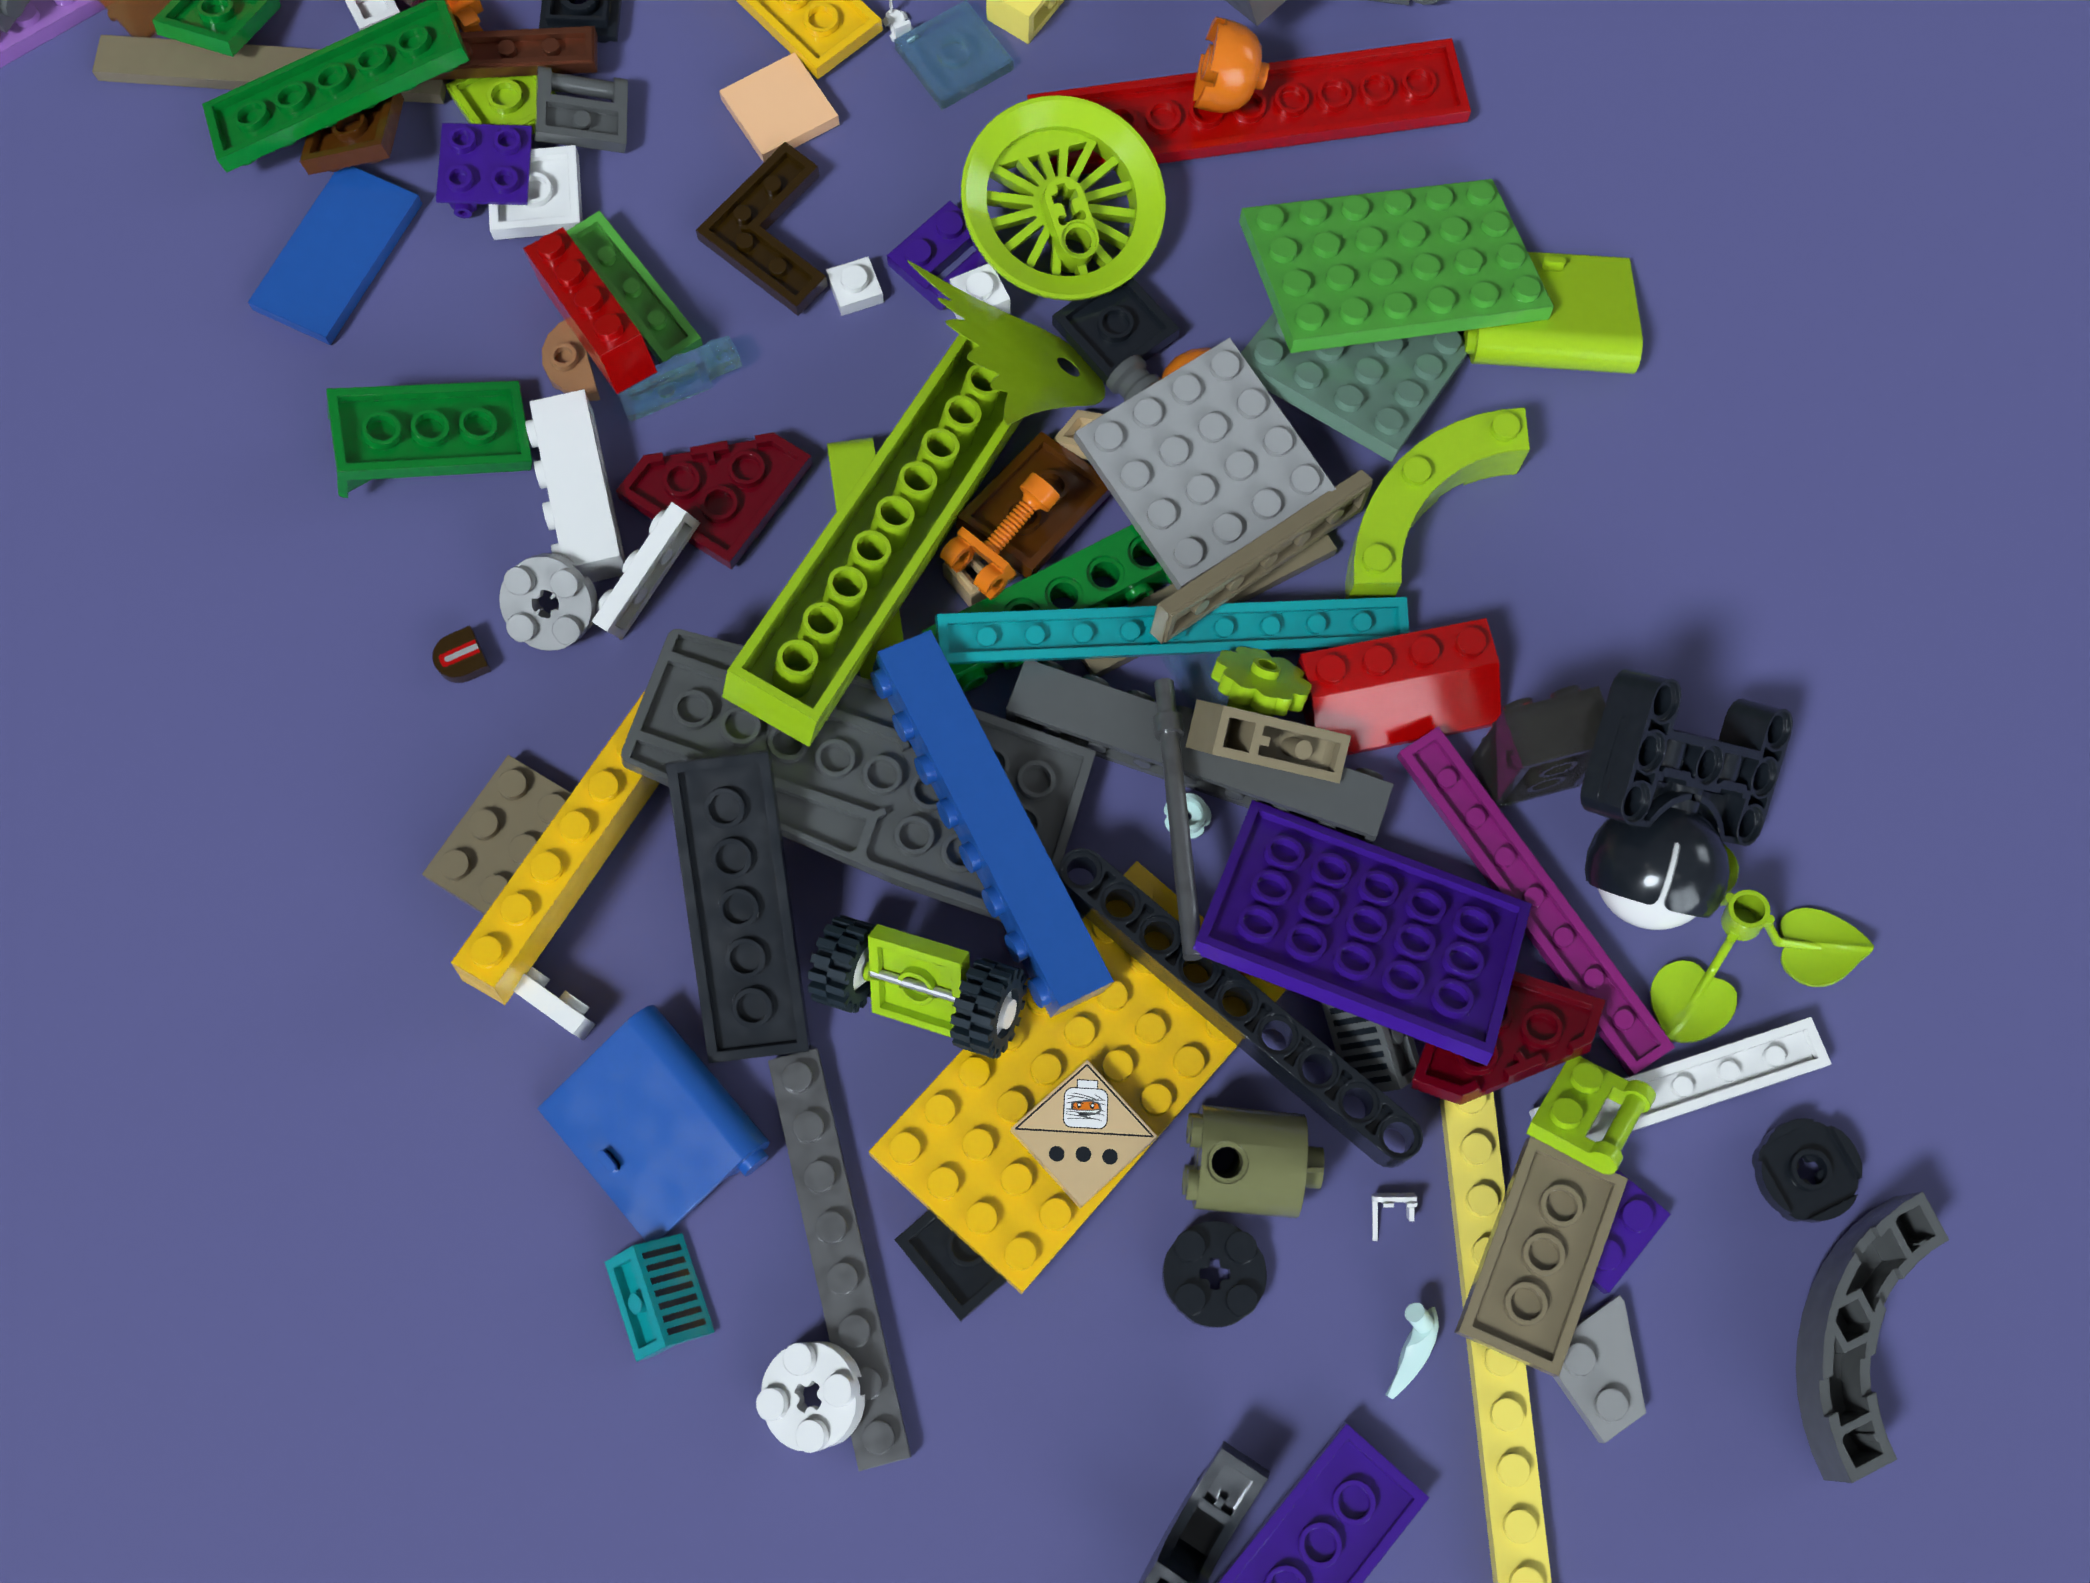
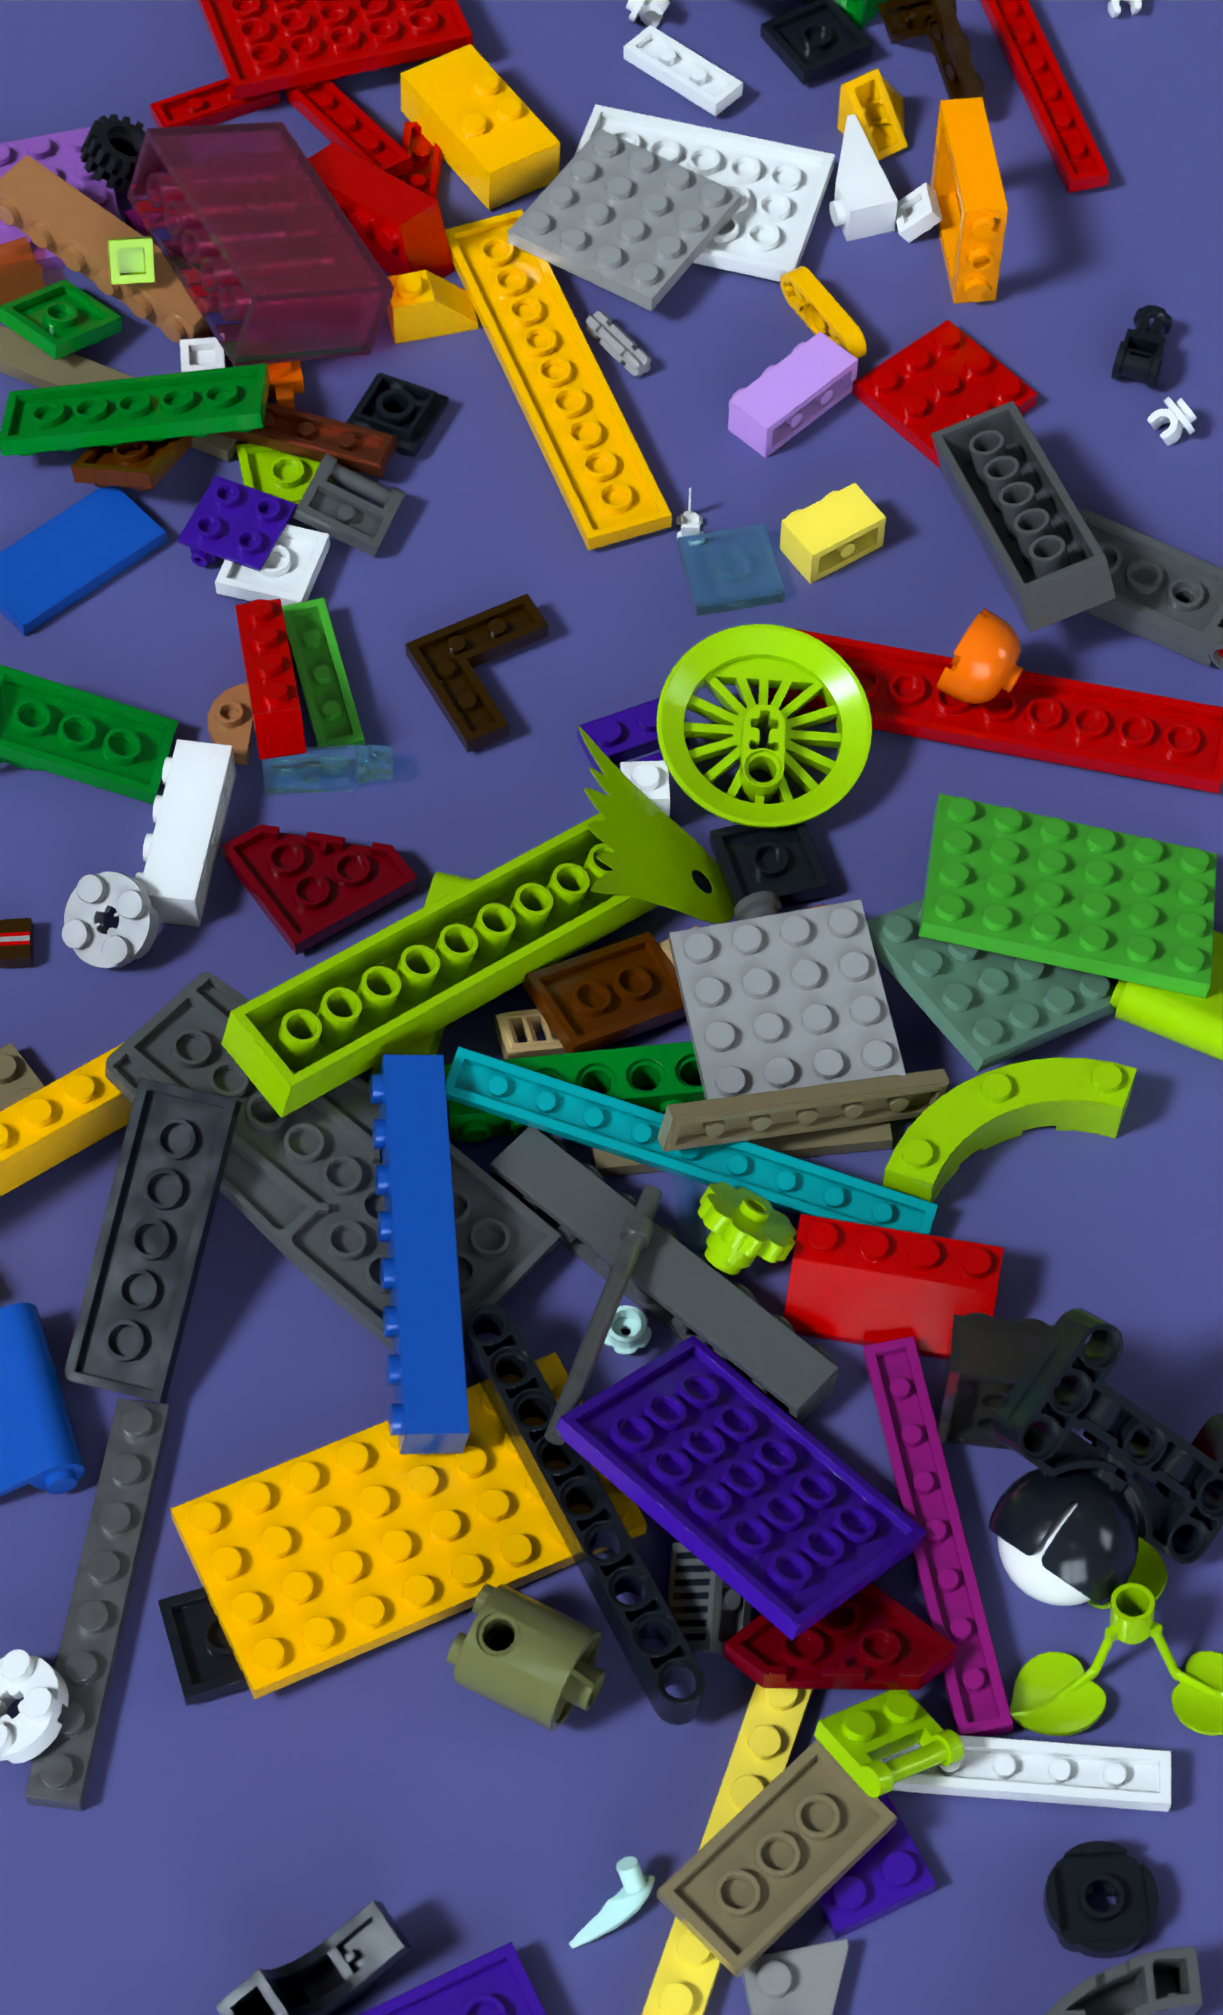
camera: 25 degrees right, 15 degrees down
(645, 570) = (212, 923): white plate -> none
(779, 106) = (540, 561): light nougat tile -> none
(855, 286) = (534, 744): white plate -> none
(918, 984) = (286, 1372): plate -> none
(994, 576) = (534, 1038): orange bar -> none
(1083, 1134) = (379, 1568): tile -> none
(1235, 1295) = (463, 1787): black plate -> none
(1267, 741) = (726, 1277): dark tan slope -> none
(1388, 1201) = (675, 1766): white piece -> none

